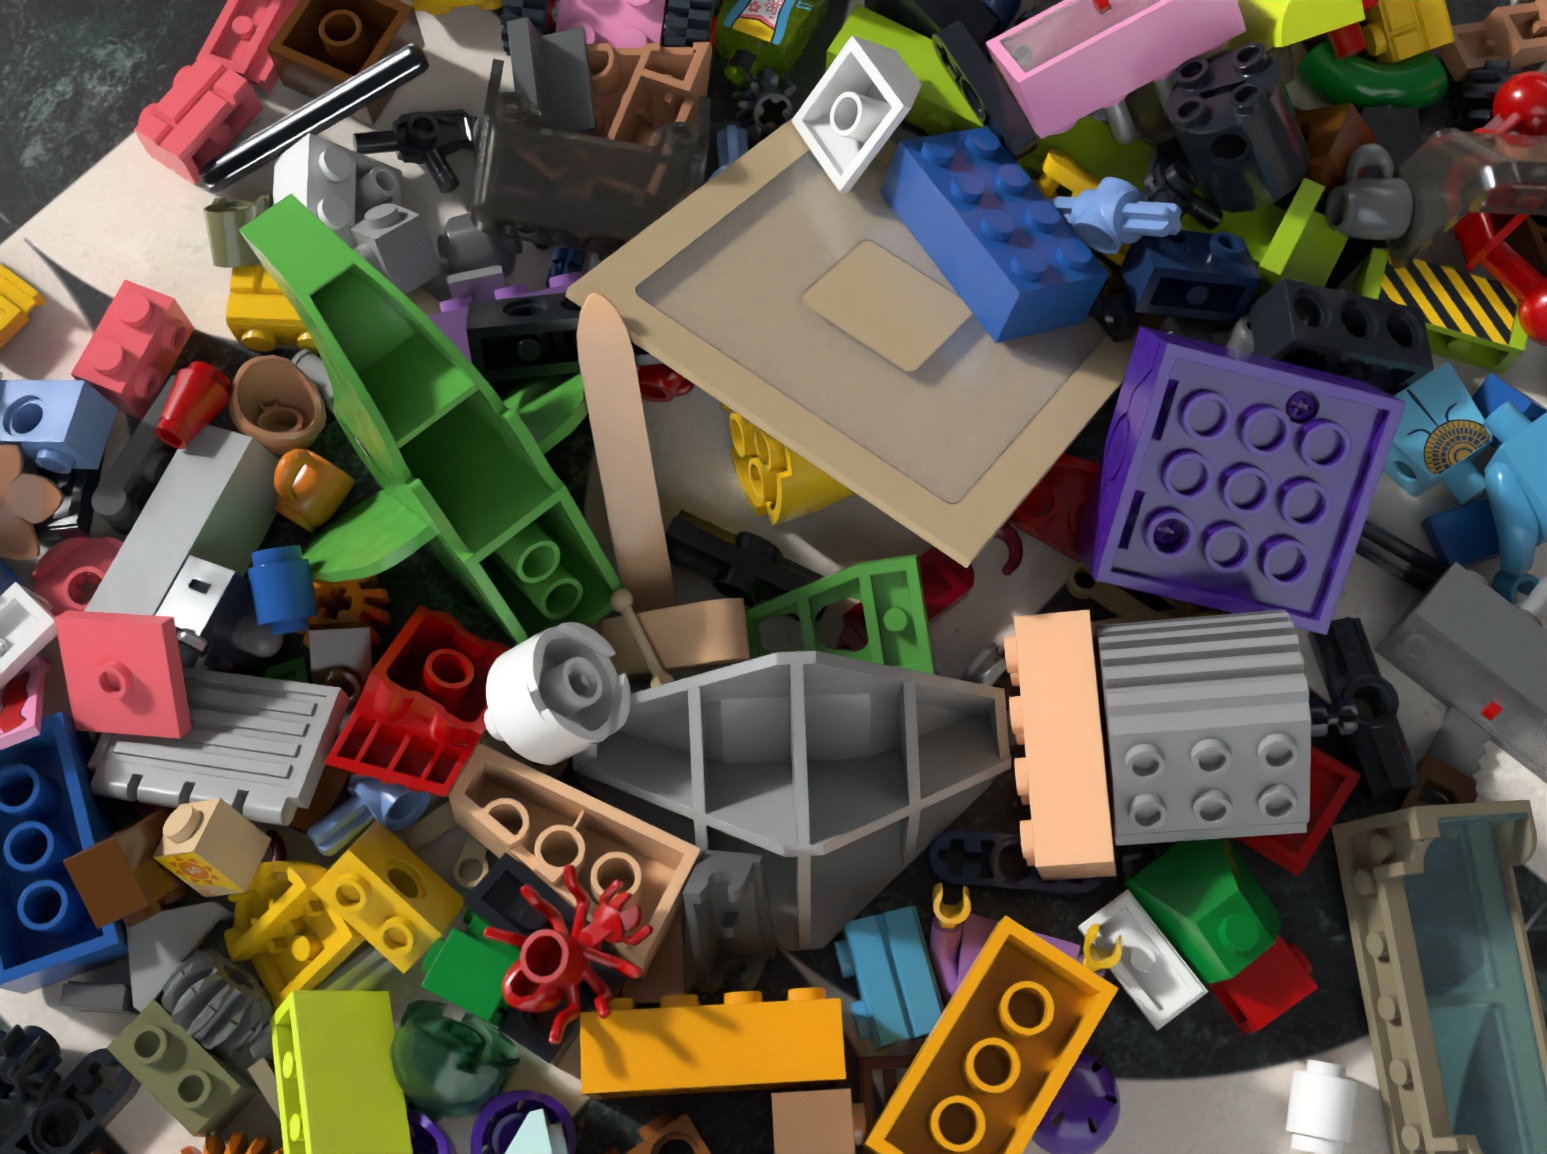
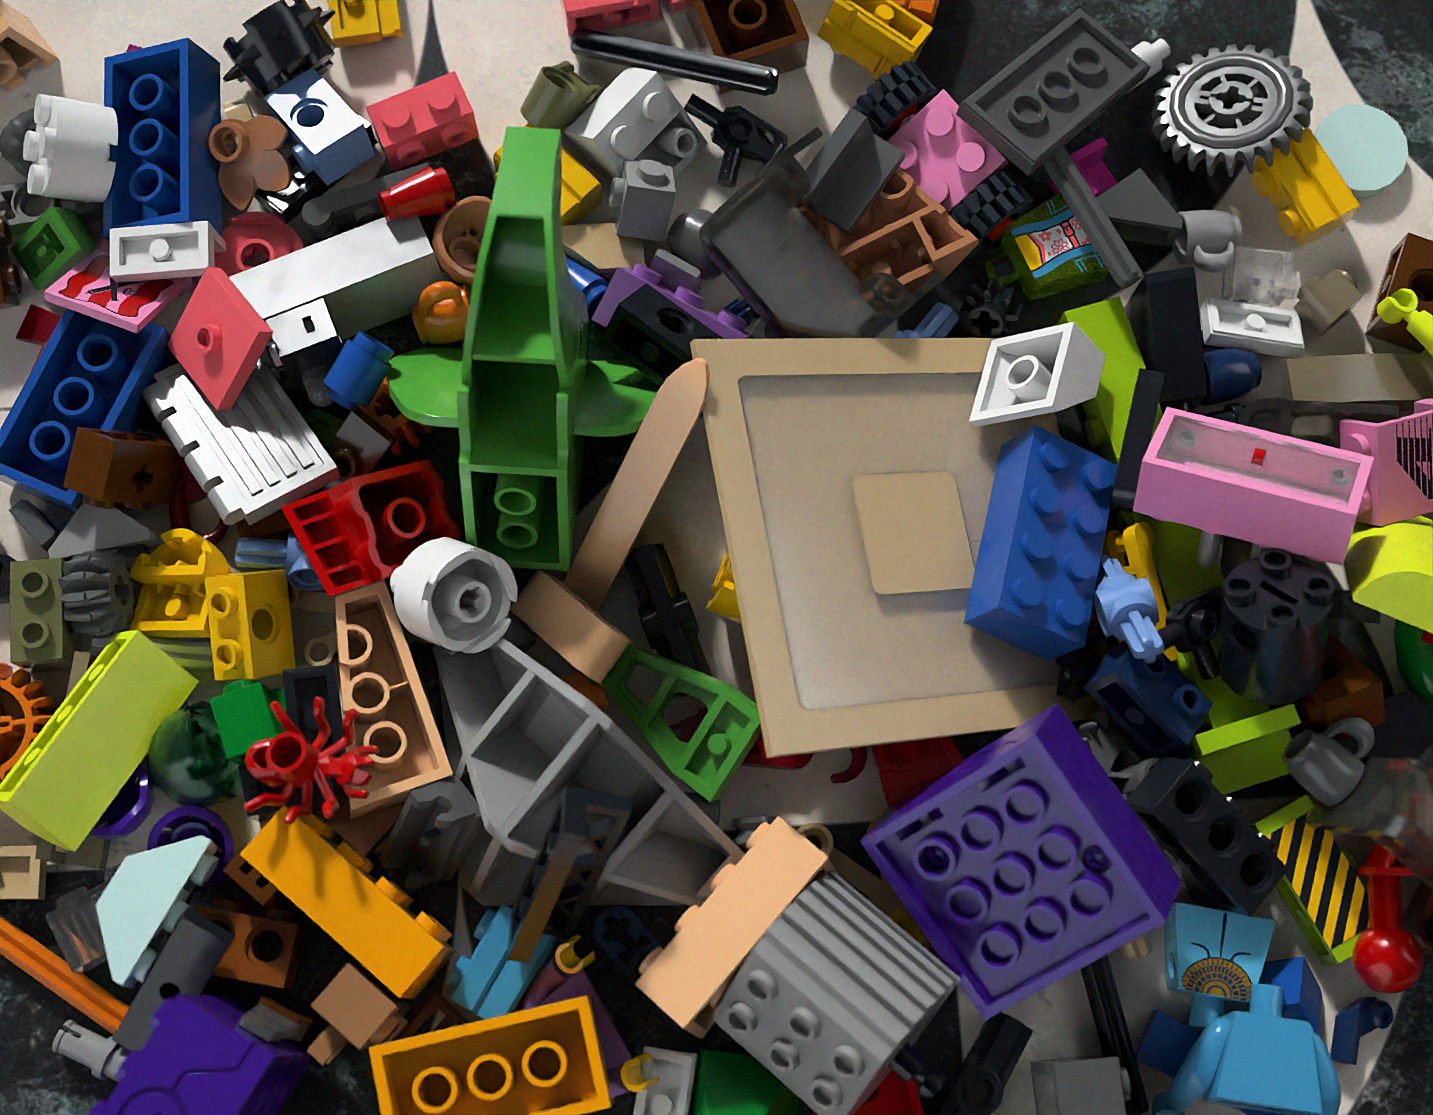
camera: 40 degrees right, 5 degrees up
(212, 847) = (173, 496): tan brick -> none
(617, 1108) = (256, 884): none -> reddish brown tile
(621, 601) = (531, 646): tan hinge -> none
(884, 825) = (557, 861): none -> black fence

